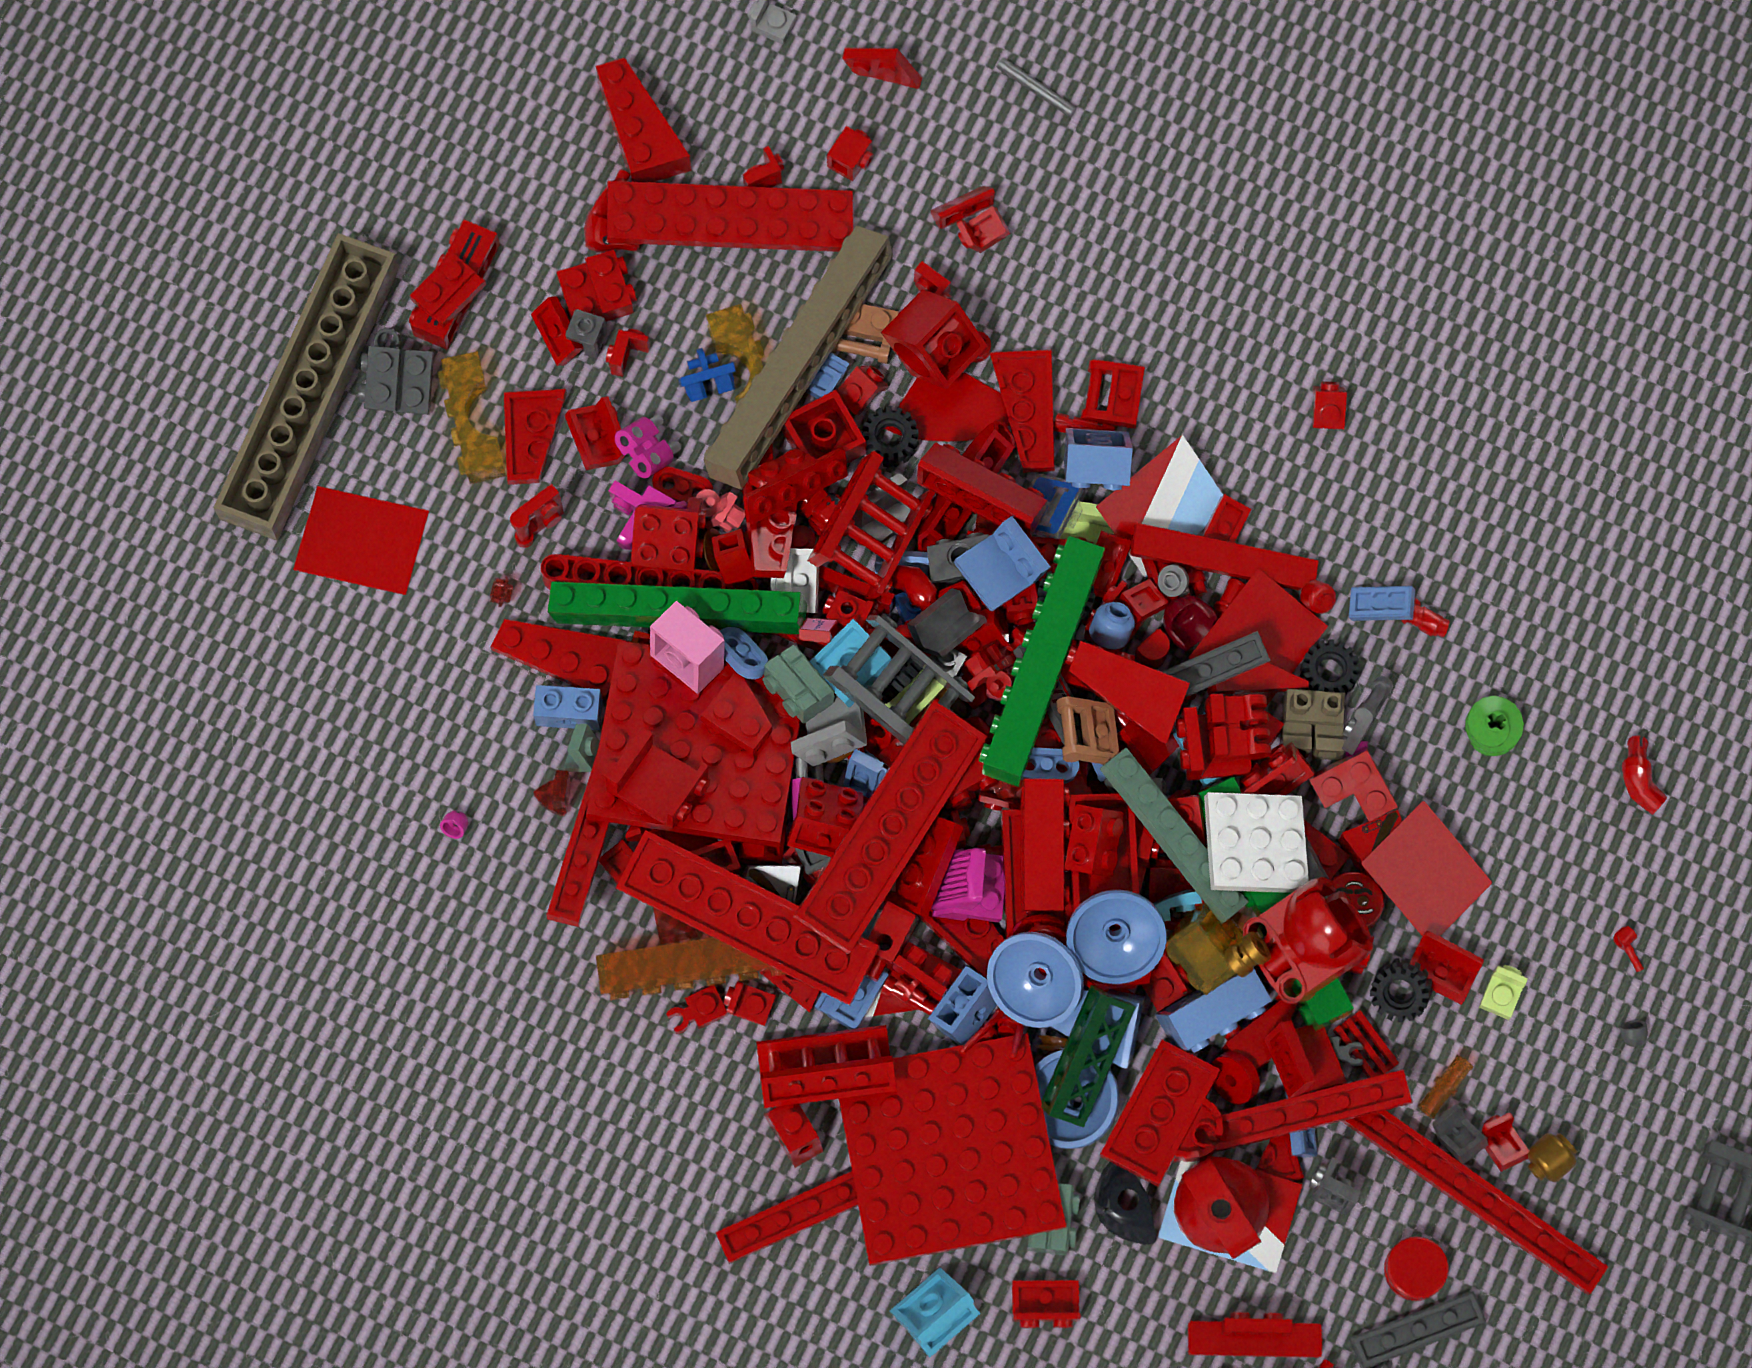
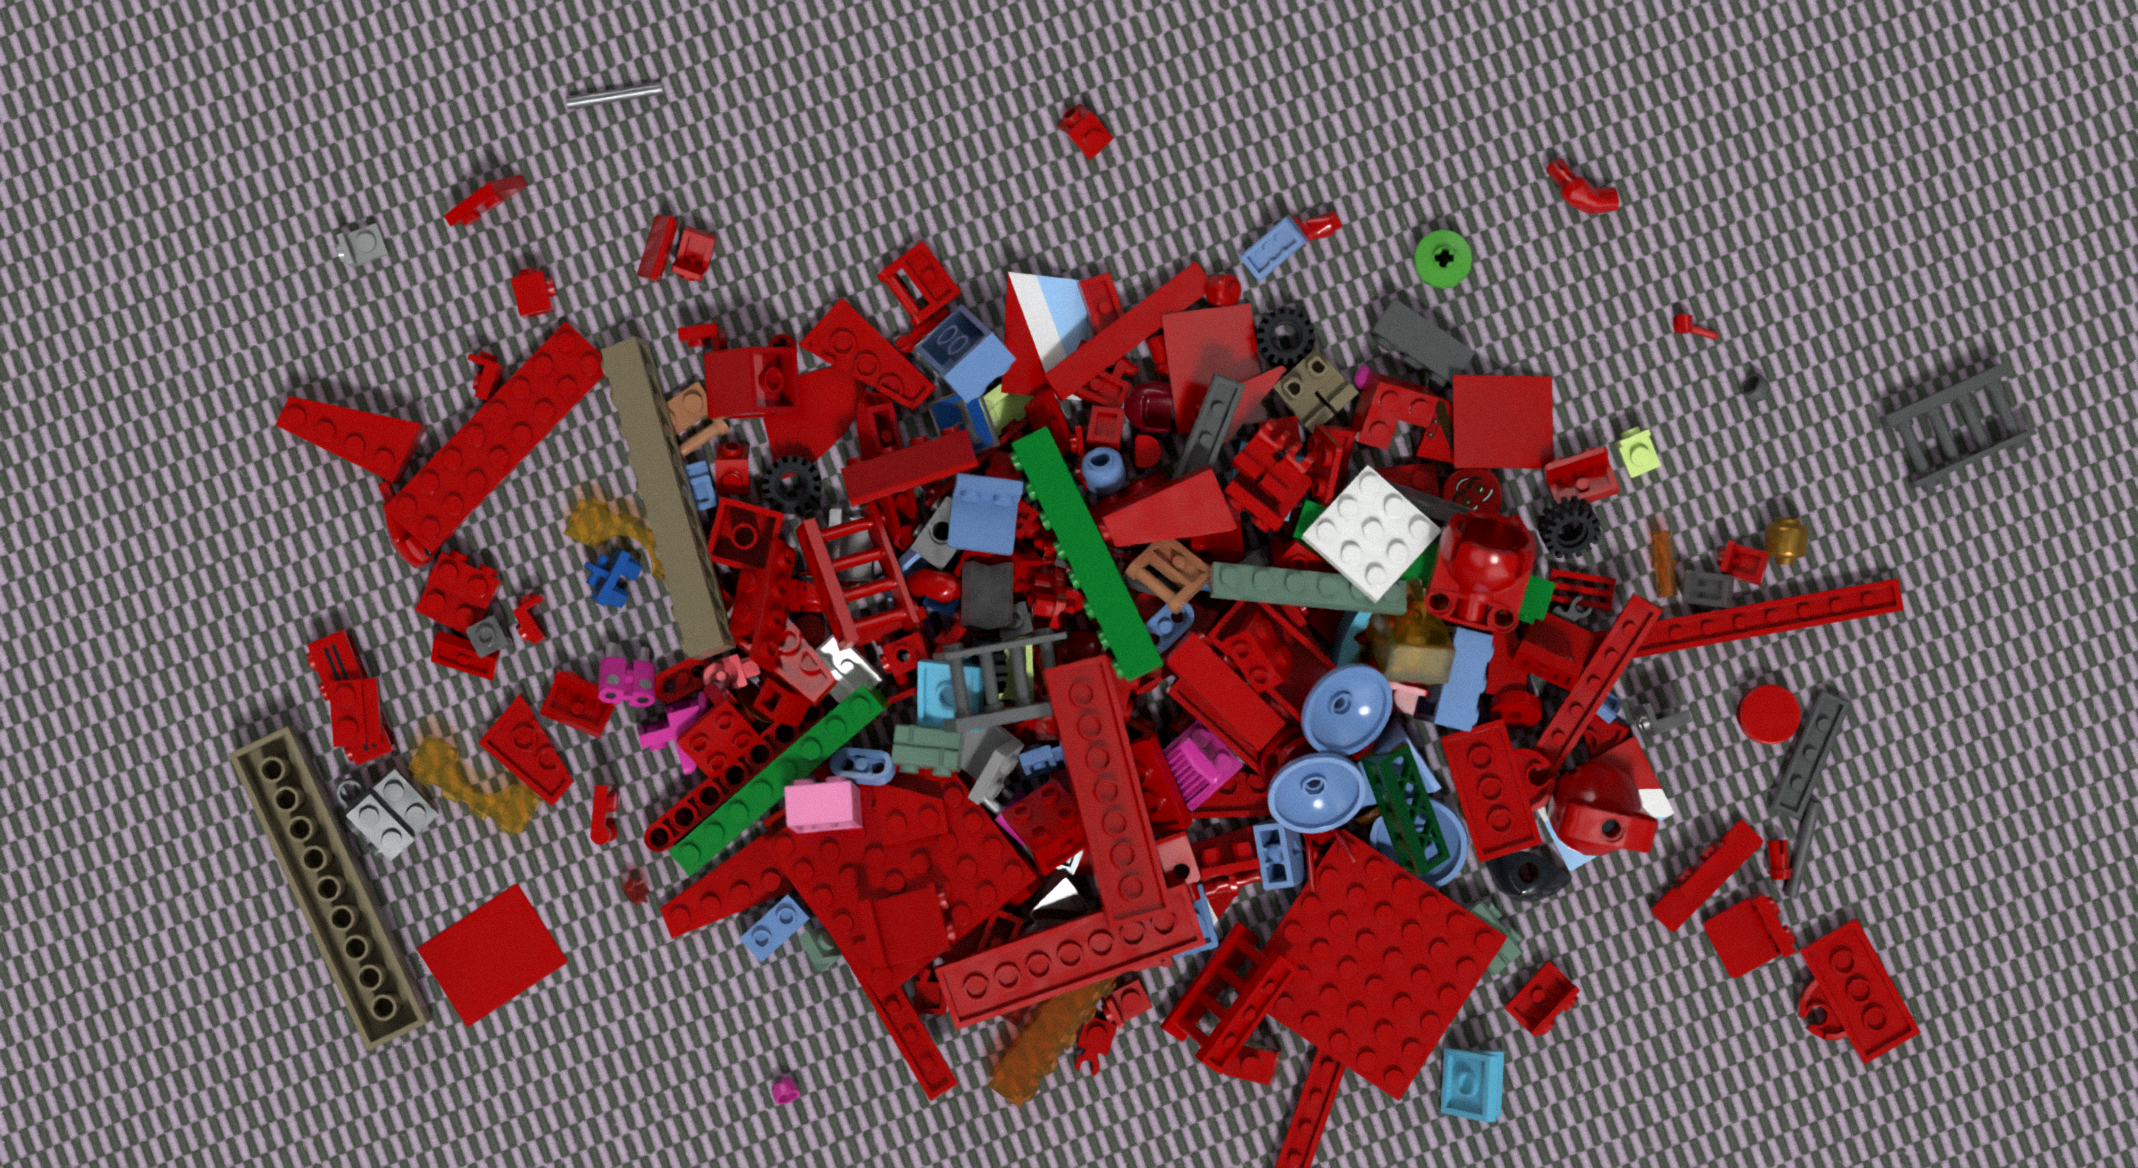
camera: 45 degrees left, 15 degrees up
(555, 794) = (832, 996): clear red tile -> none
(818, 630) = (900, 693): red tile -> none
(1173, 581) = (1112, 389): flat silver plate -> none
(1247, 954) = (1450, 628): pearl gold wheel -> none
(1366, 714) = (1347, 348): flat silver plate -> none
(1422, 764) = (1421, 343): none -> dark grey brick

